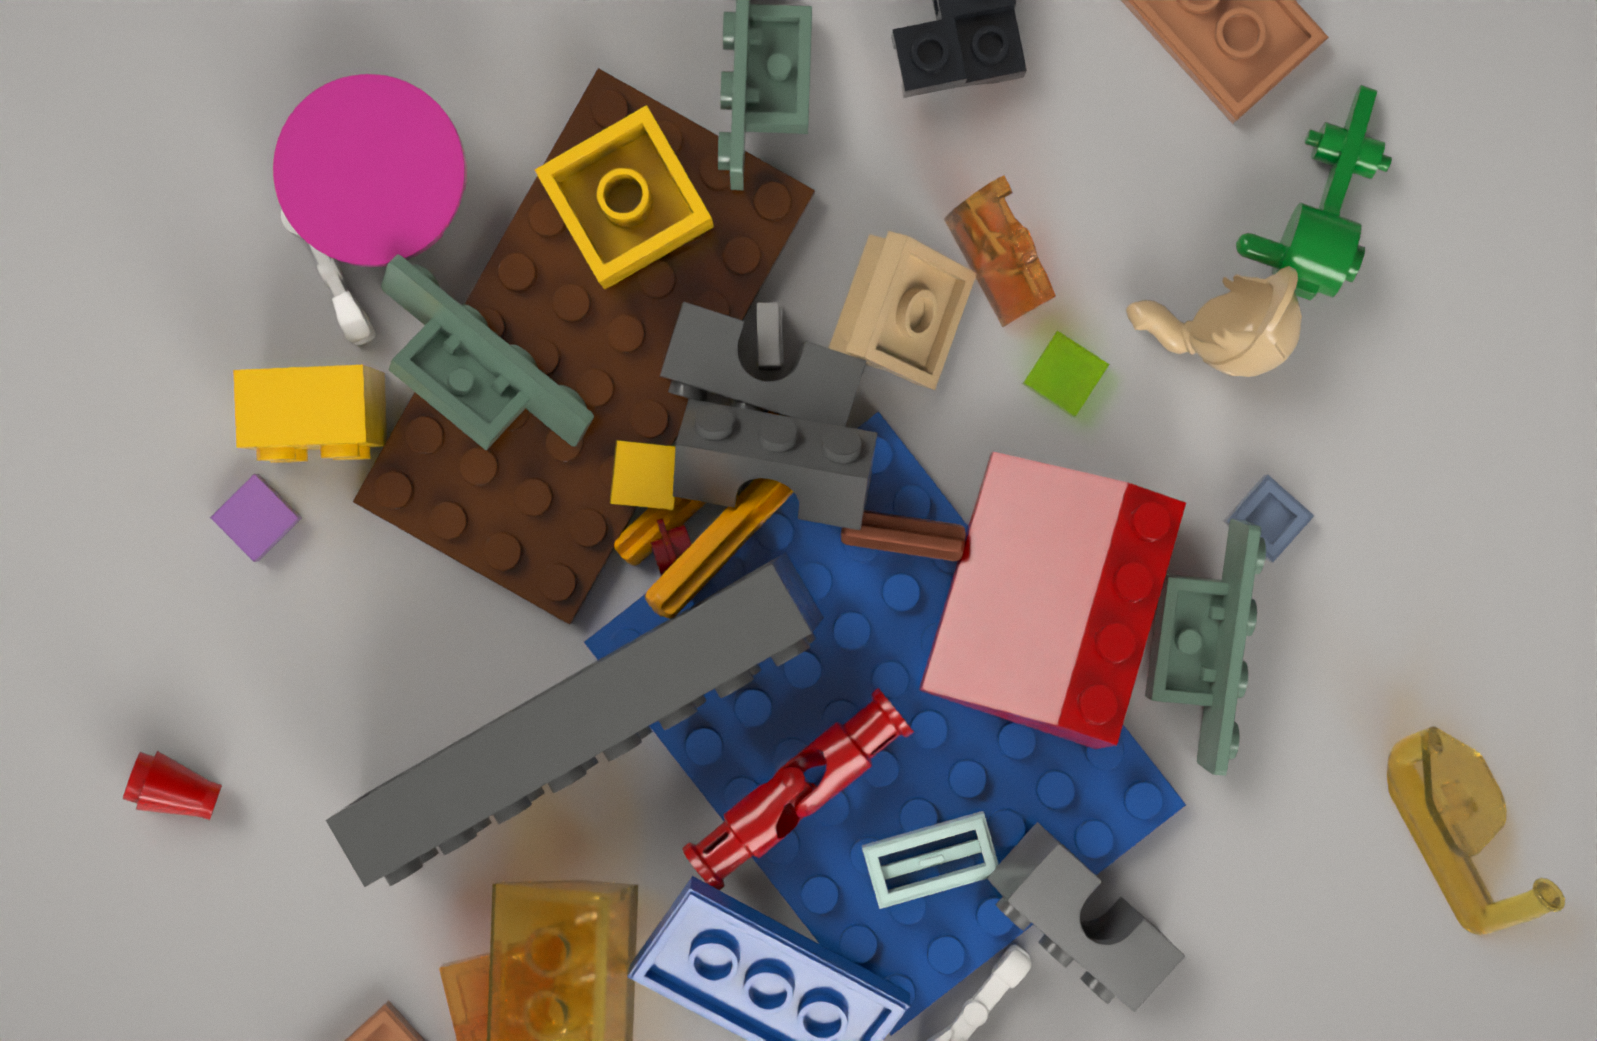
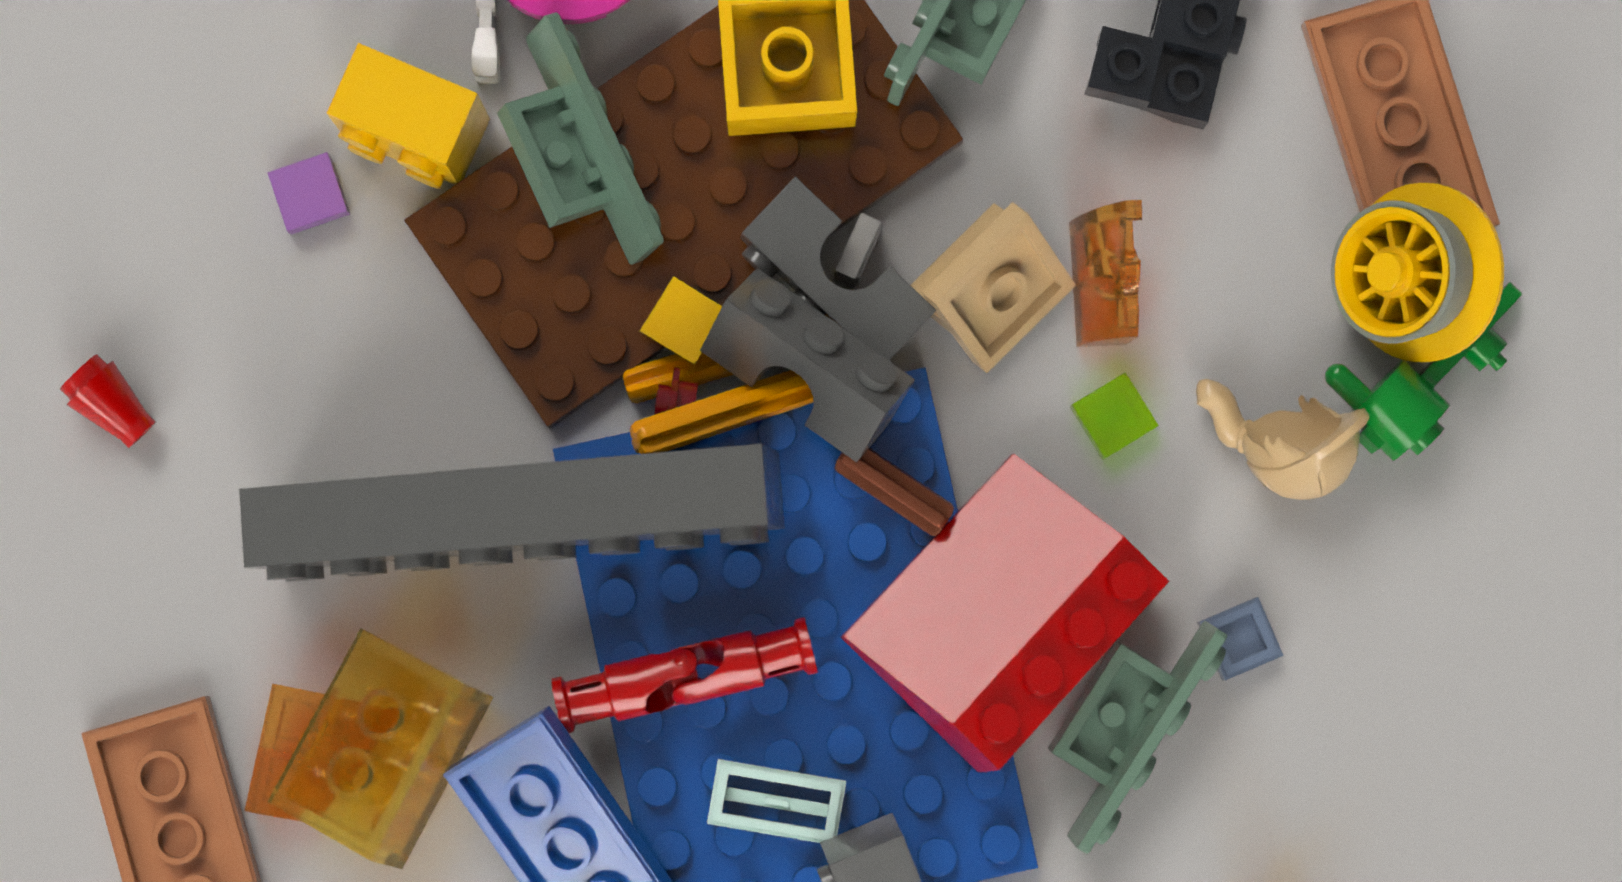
camera: 25 degrees right, 5 degrees down
(1280, 117) = (1419, 272): none -> yellow piece

